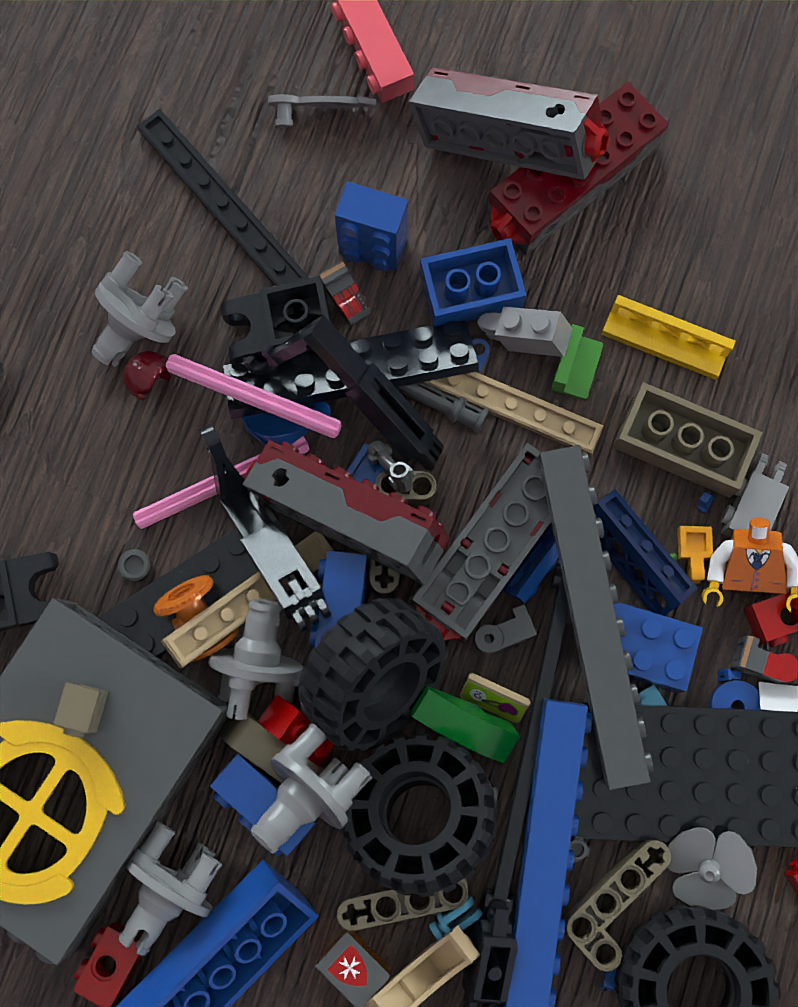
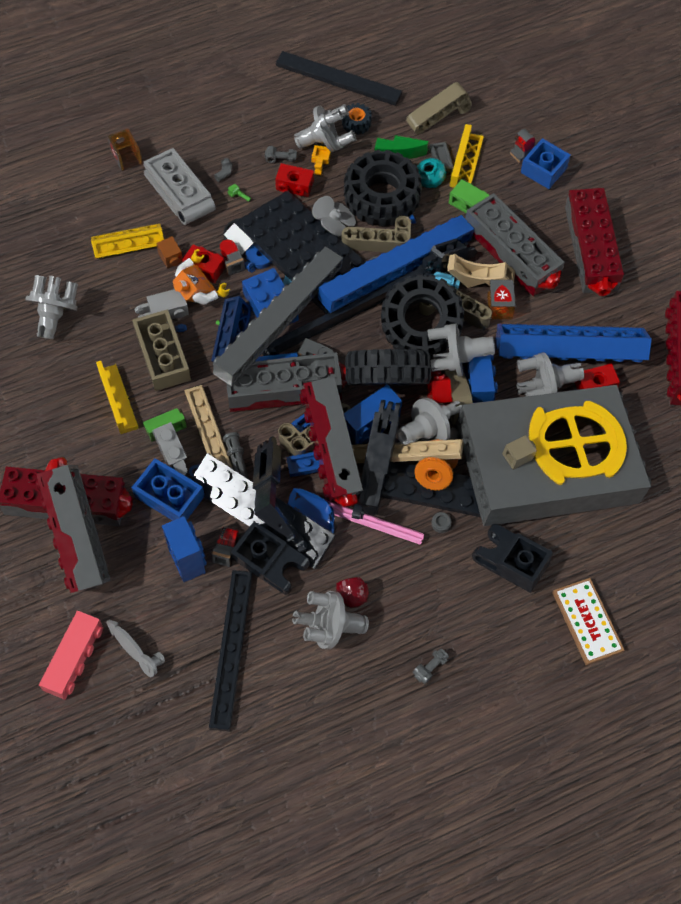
camera: 135 degrees left, 15 degrees down
(253, 396) = (318, 527): bright pink axle -> none
(400, 473) = (293, 437): dark grey bar -> none
(465, 724) = (368, 330): green slope -> none
(494, 698) = (345, 336): slope -> none
(696, 546) = (207, 315): light orange plate -> none

